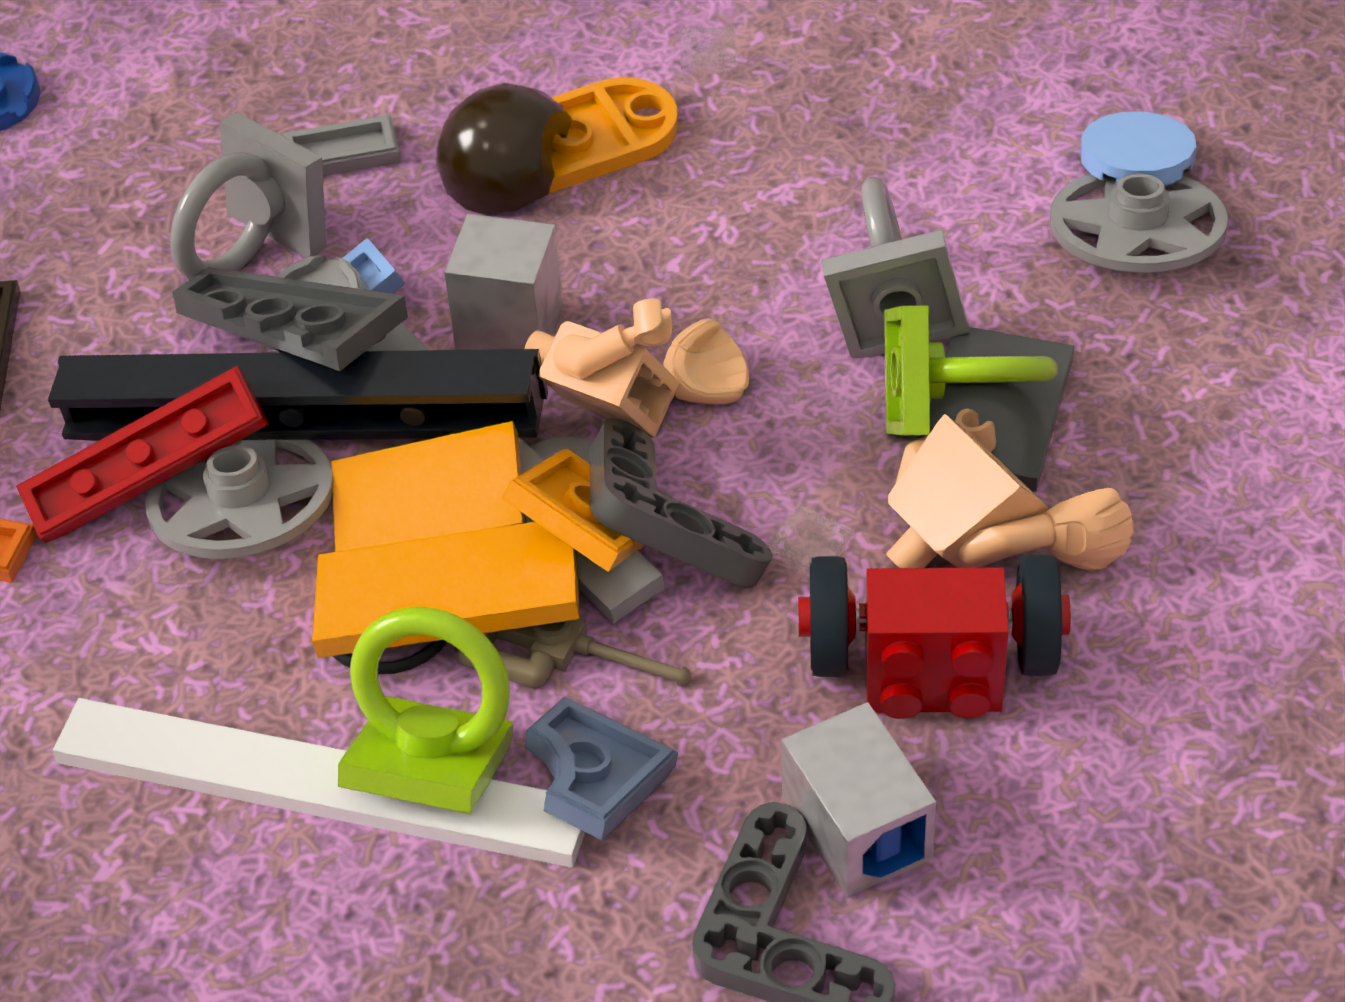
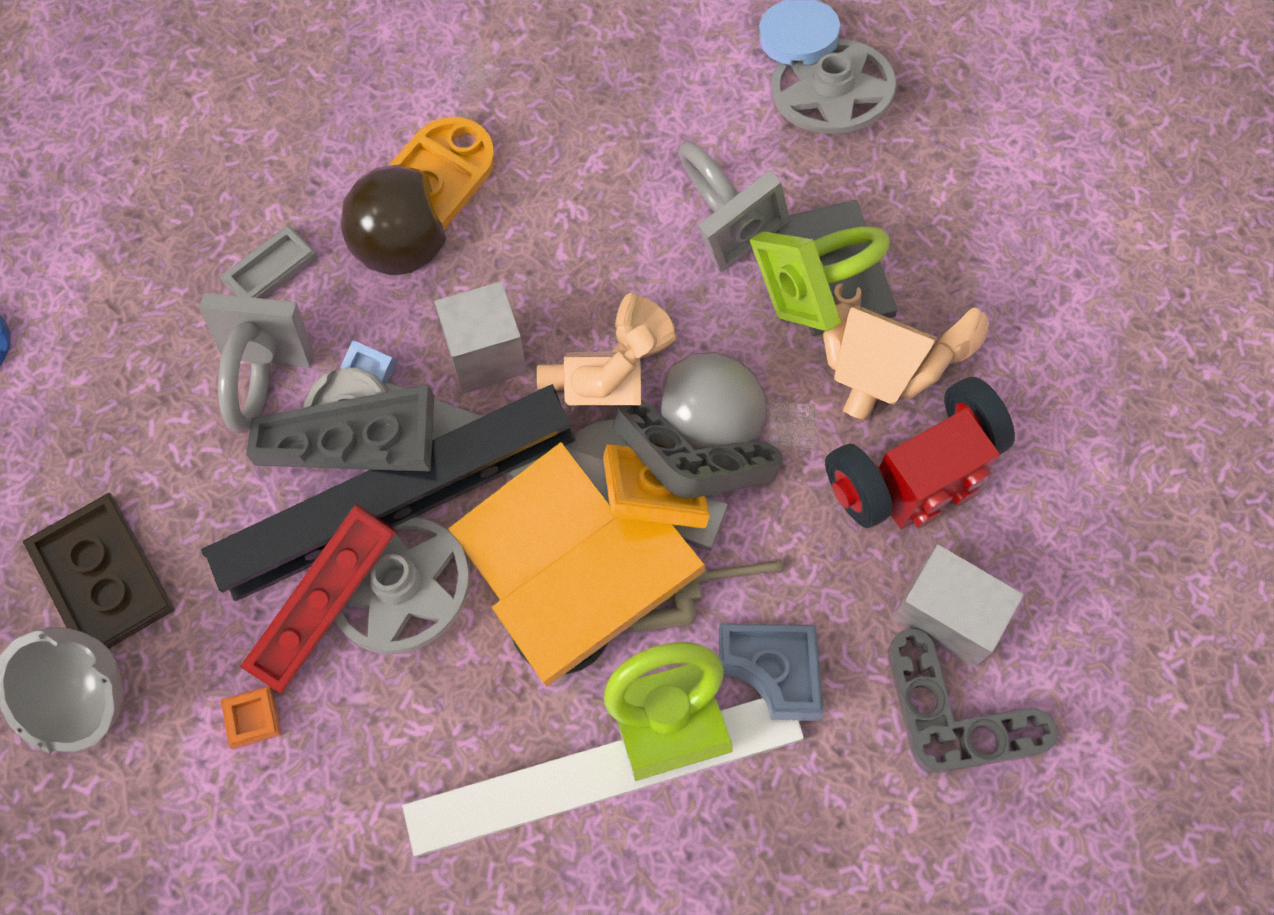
camera: 35 degrees left, 20 degrees up
(732, 469) = (713, 400): none -> light grey cylinder

